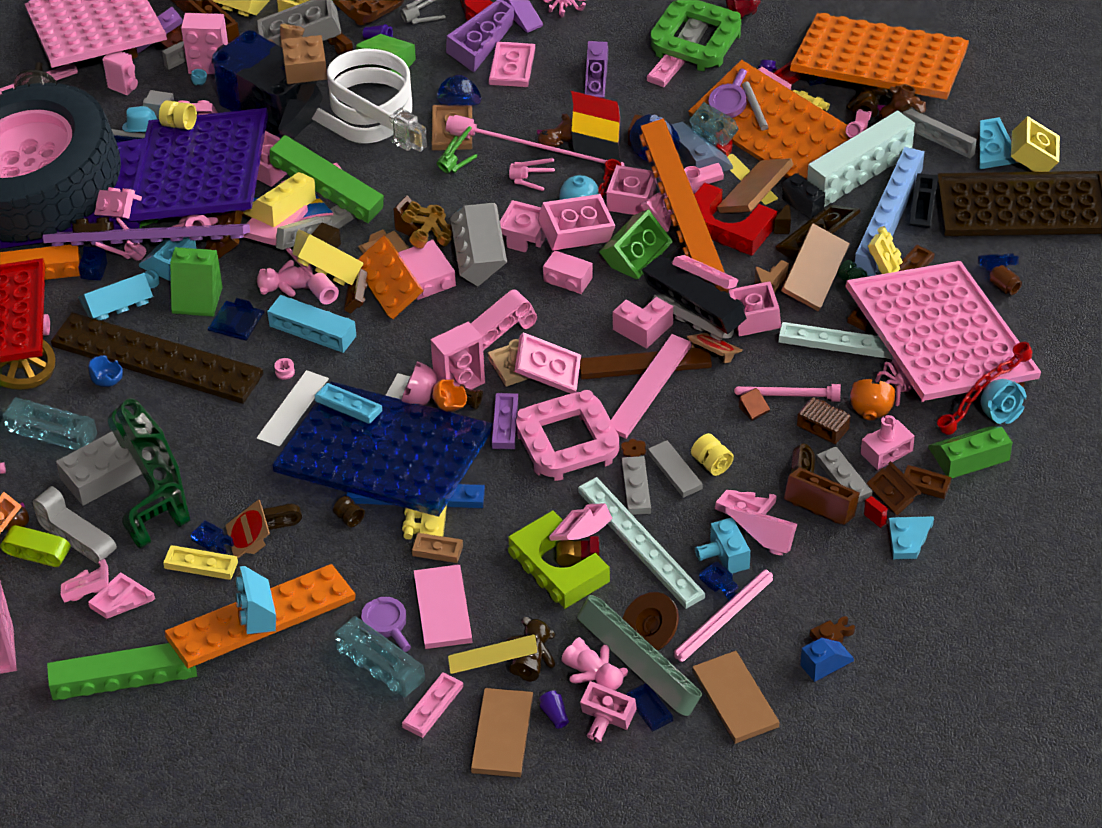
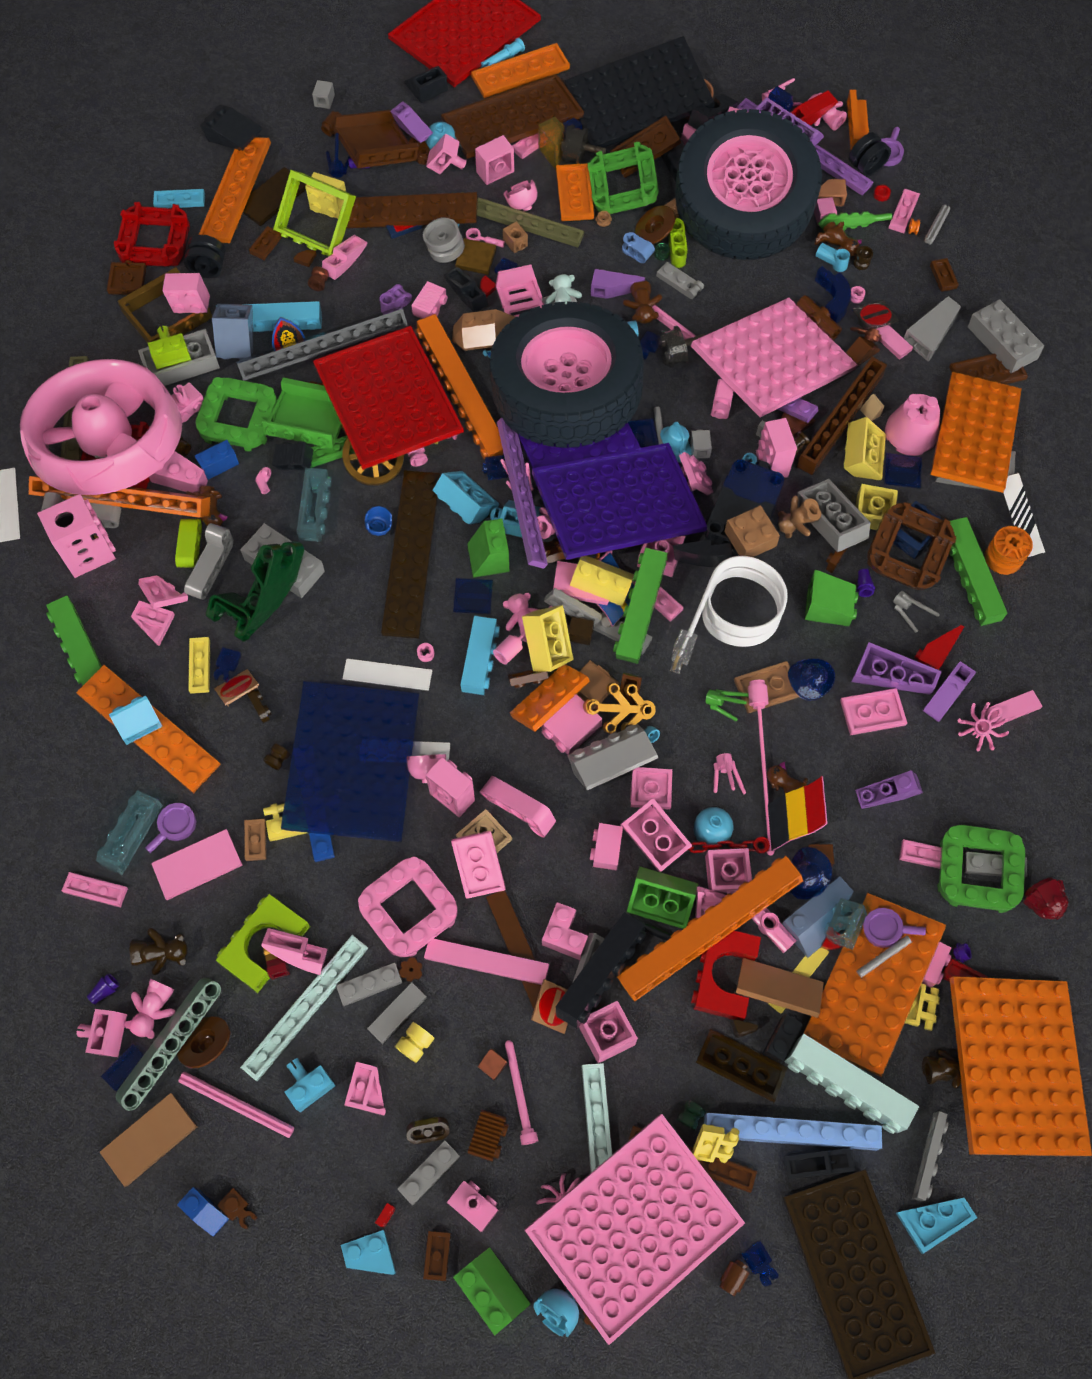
camera: 70 degrees right, 20 degrees up
(100, 224) = (521, 449): dark brown plate -> none
(115, 203) = (543, 453): bright pink bracket -> none
(177, 115) = (668, 461): light yellow wheel -> none
(348, 403) = (387, 715): medium azure tile -> none
(448, 396) = (414, 794): orange hair -> none
(475, 397) = (431, 810): dark brown bush -> none
(492, 654) = (140, 921): light yellow sticker -> none
(502, 732) = (75, 954): medium nougat tile -> none
(505, 421) = (415, 847): medium lavender plate -> none
(705, 271) = (626, 973): bright pink tile -> none
(718, 578) = (273, 1087): clear blue plate -> none
(767, 530) = (332, 1112): bright pink slope -> none
(776, 276) = (650, 1036): medium nougat slope -> none
(815, 267) = (681, 1076): tile -> none
(821, 496) = (386, 1159): reddish brown brick -> none
(859, 125) = (896, 1072): bright pink bar -> none
(872, 399) = (520, 1177): orange cylinder -> none
(893, 488) = (417, 1226): reddish brown plate -> none
(902, 101) = (944, 1107): reddish brown animal -> none
(947, 423) = (610, 1315): red piece -> none
(1035, 146) = (937, 1269): light yellow brick -> none

